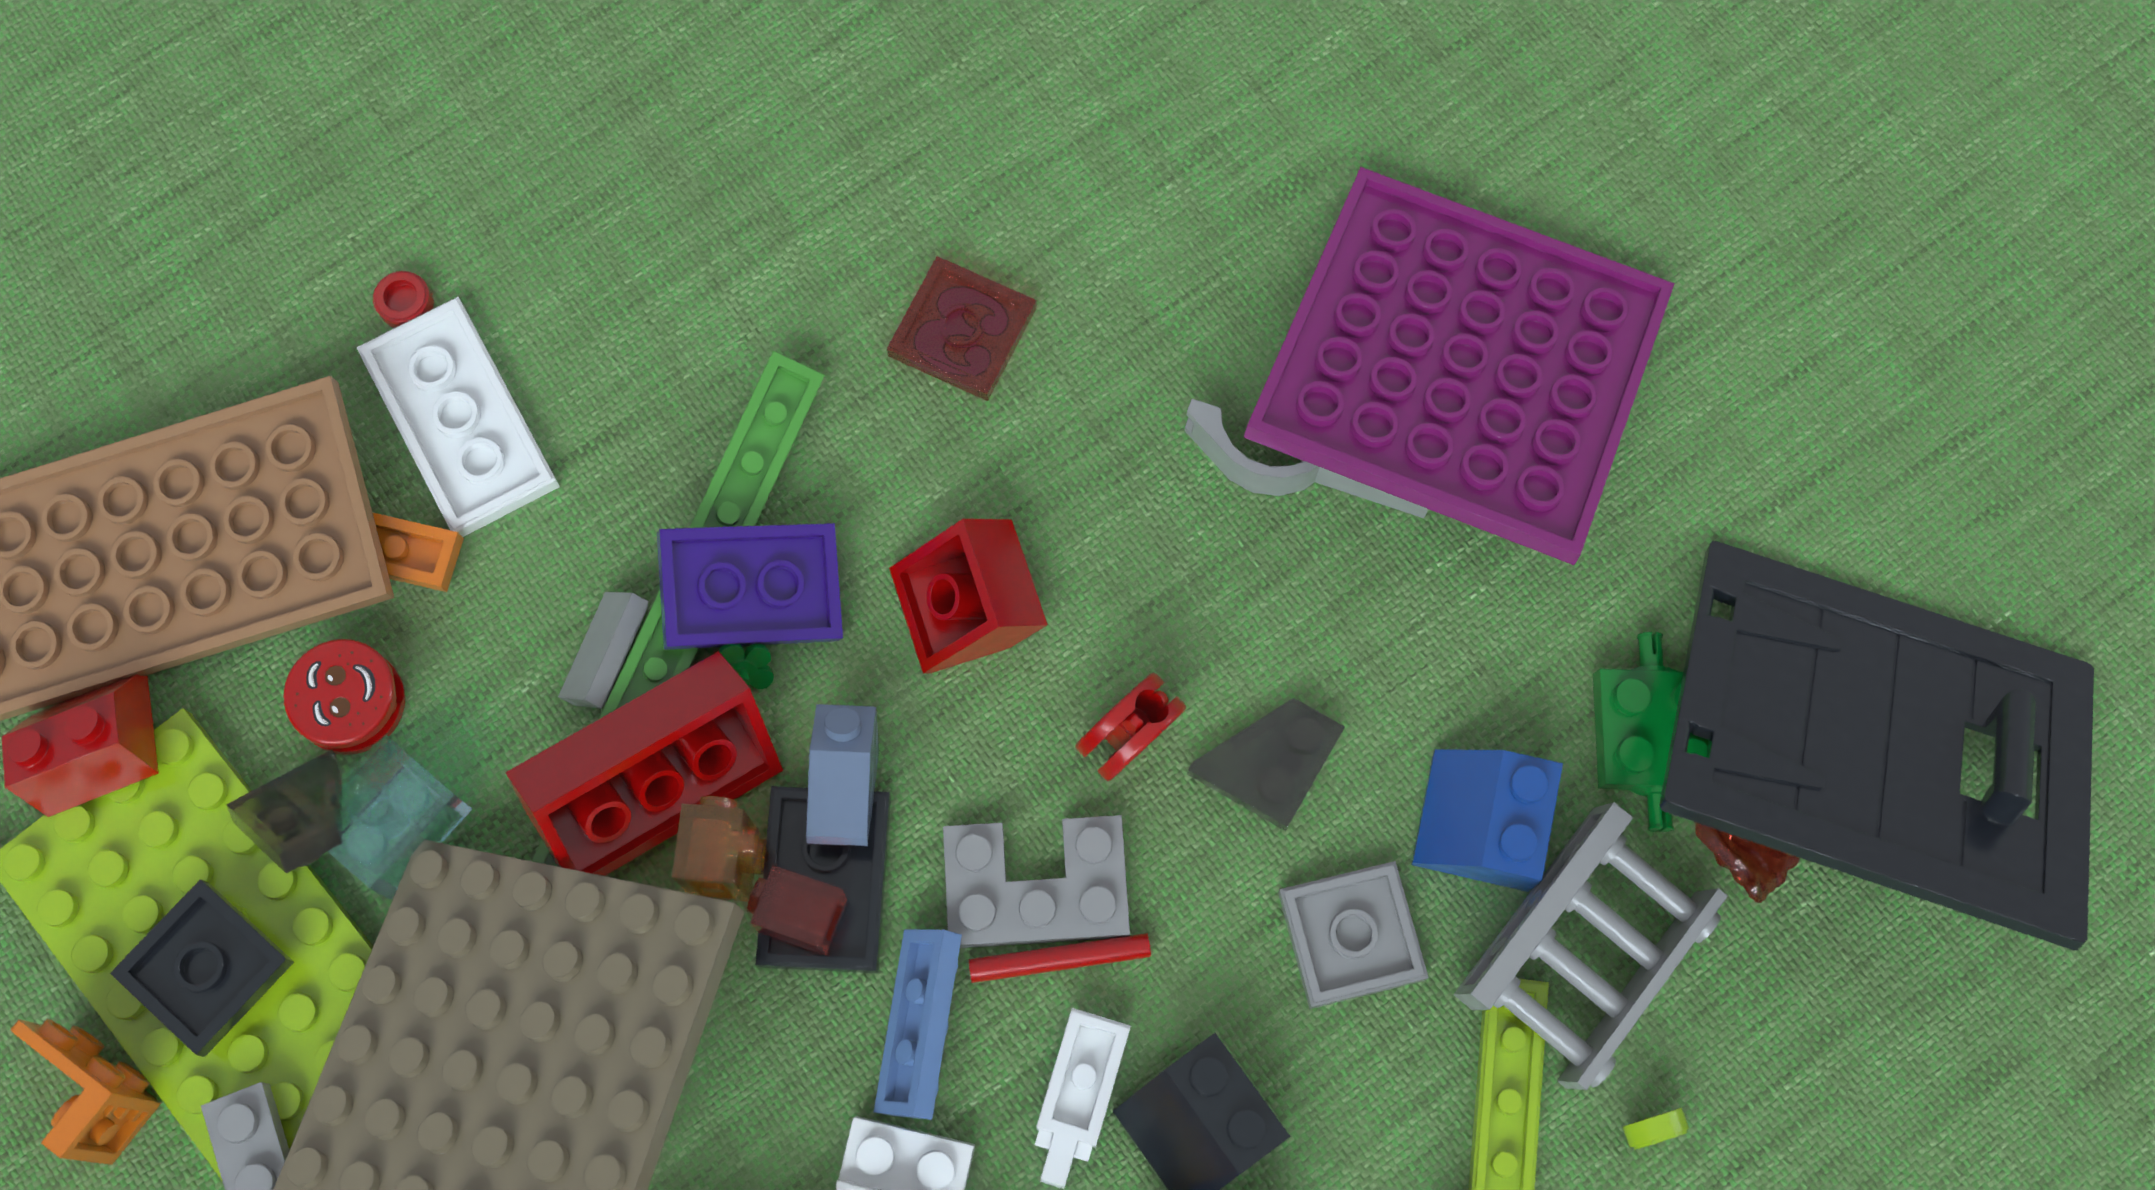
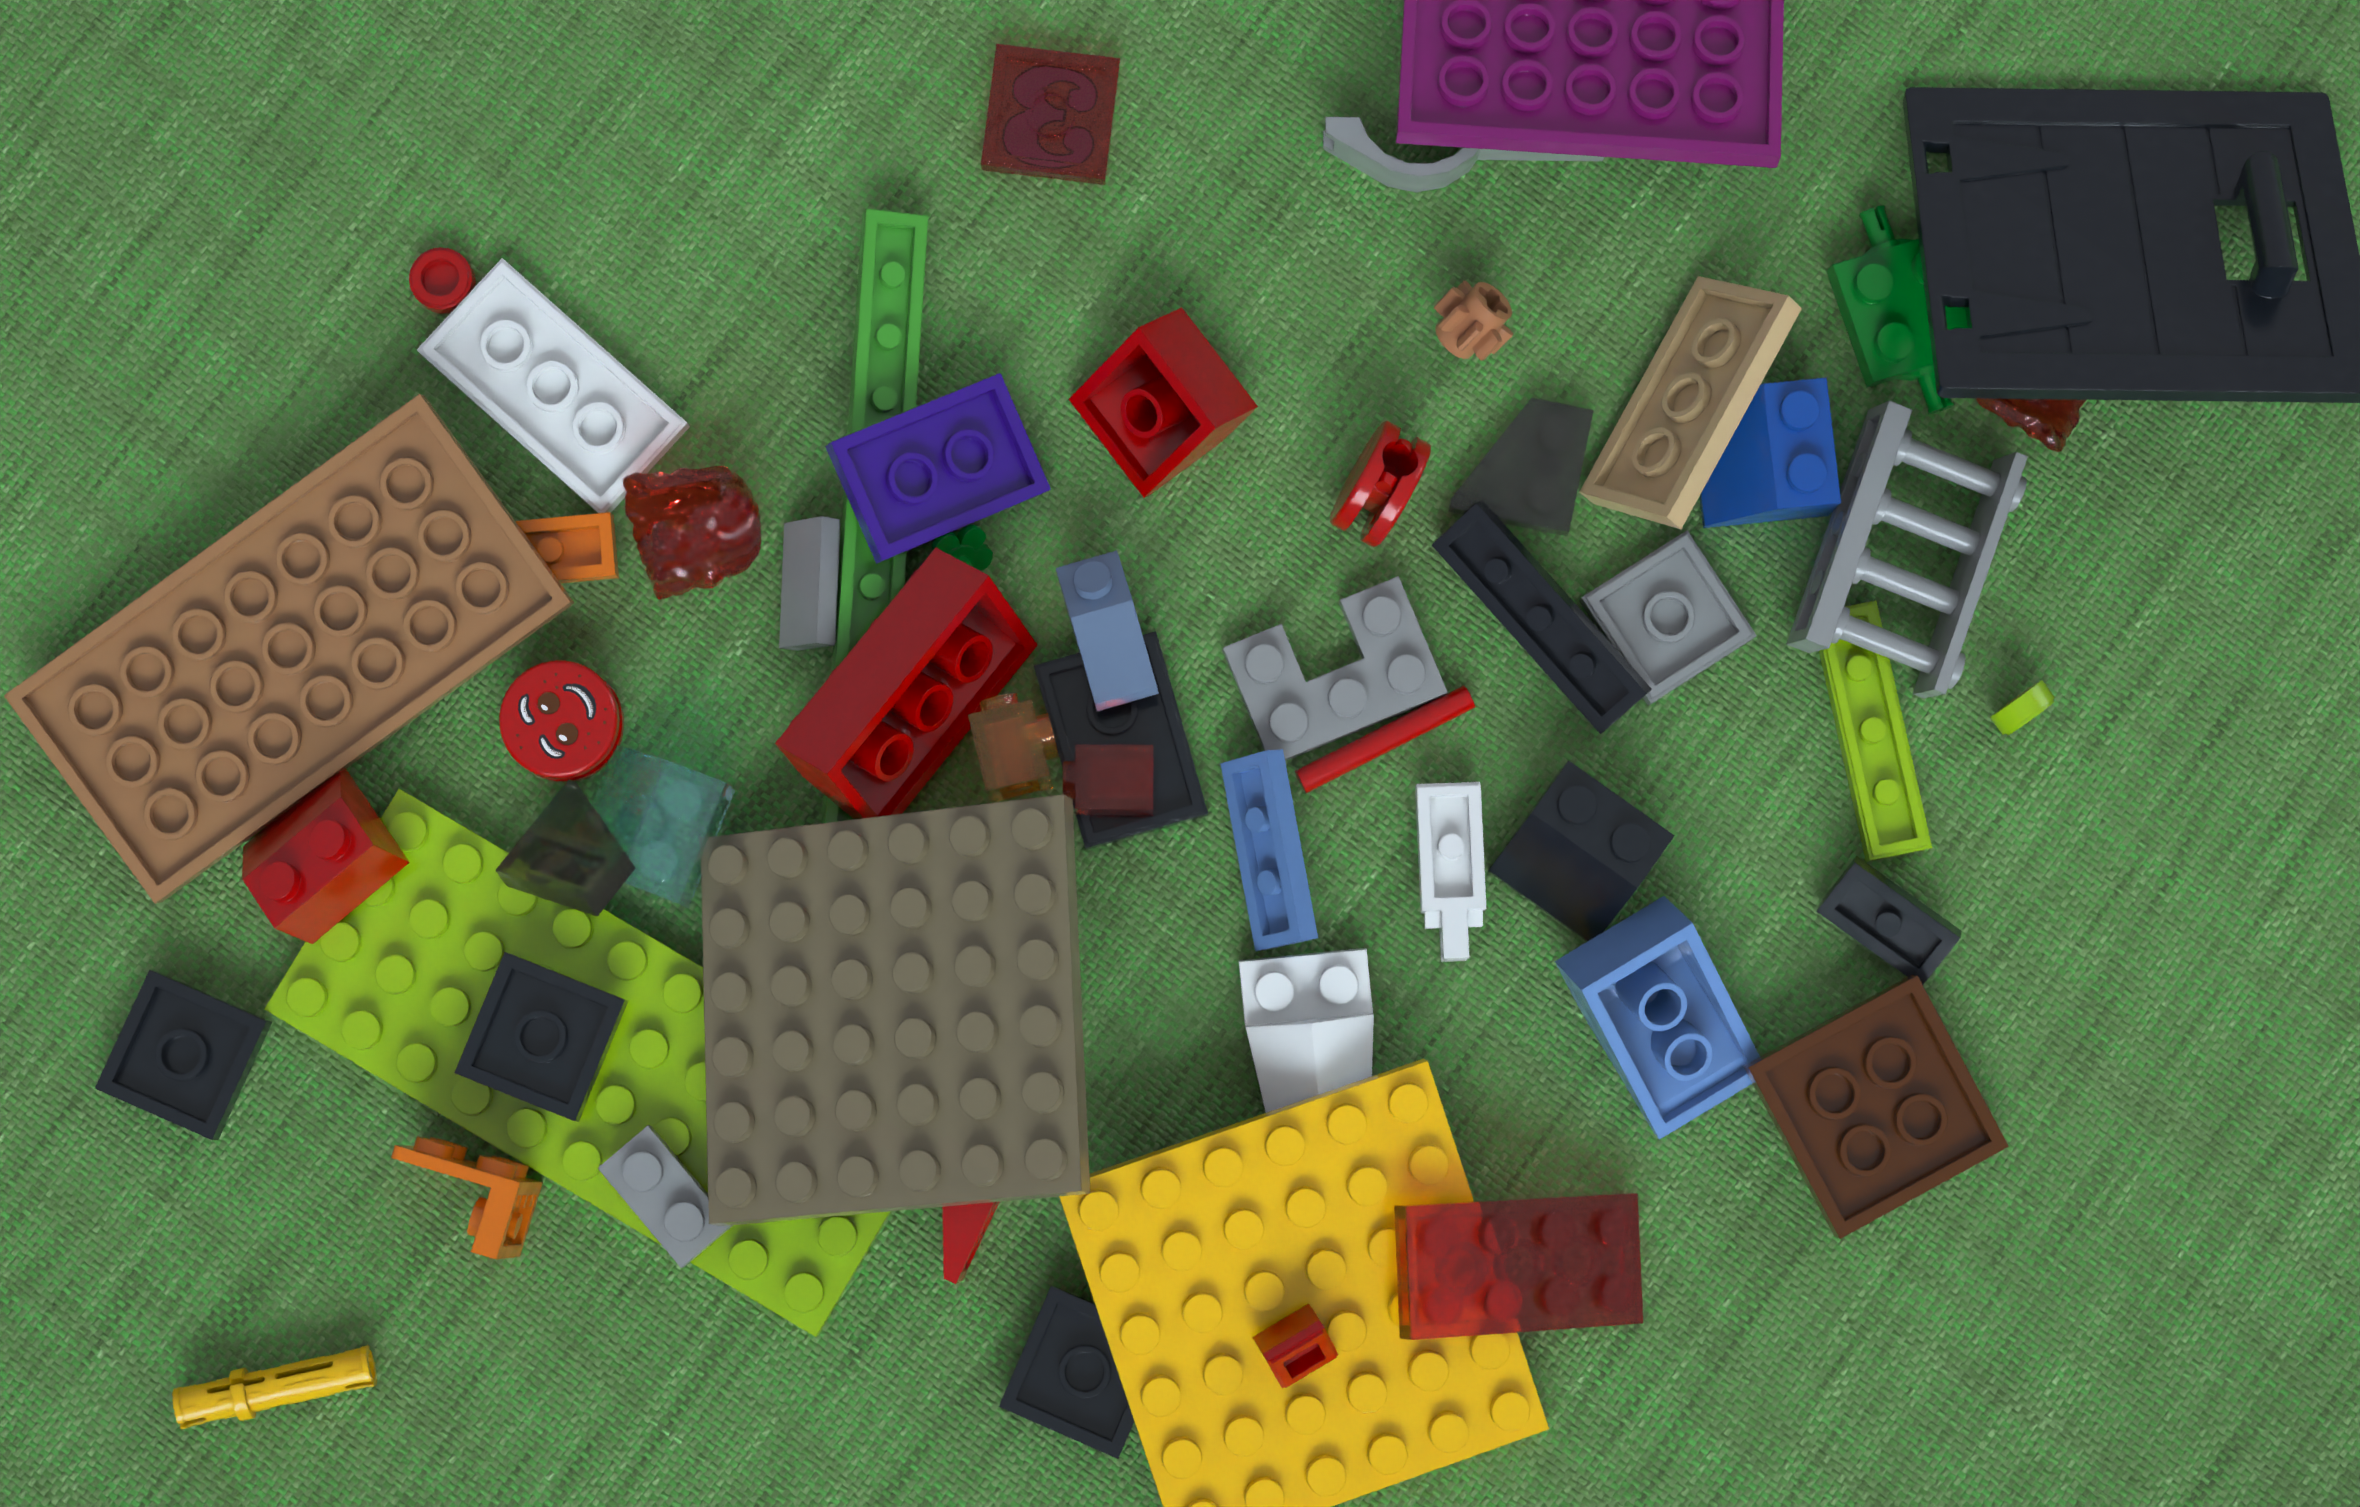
camera: 20 degrees left, 10 degrees up
(519, 567) = (692, 527): none -> clear red hair
(1237, 895) = (1541, 616): none -> black plate
(1263, 613) = (1473, 320): none -> nougat gear
(1433, 746) = (1690, 401): none -> tan plate

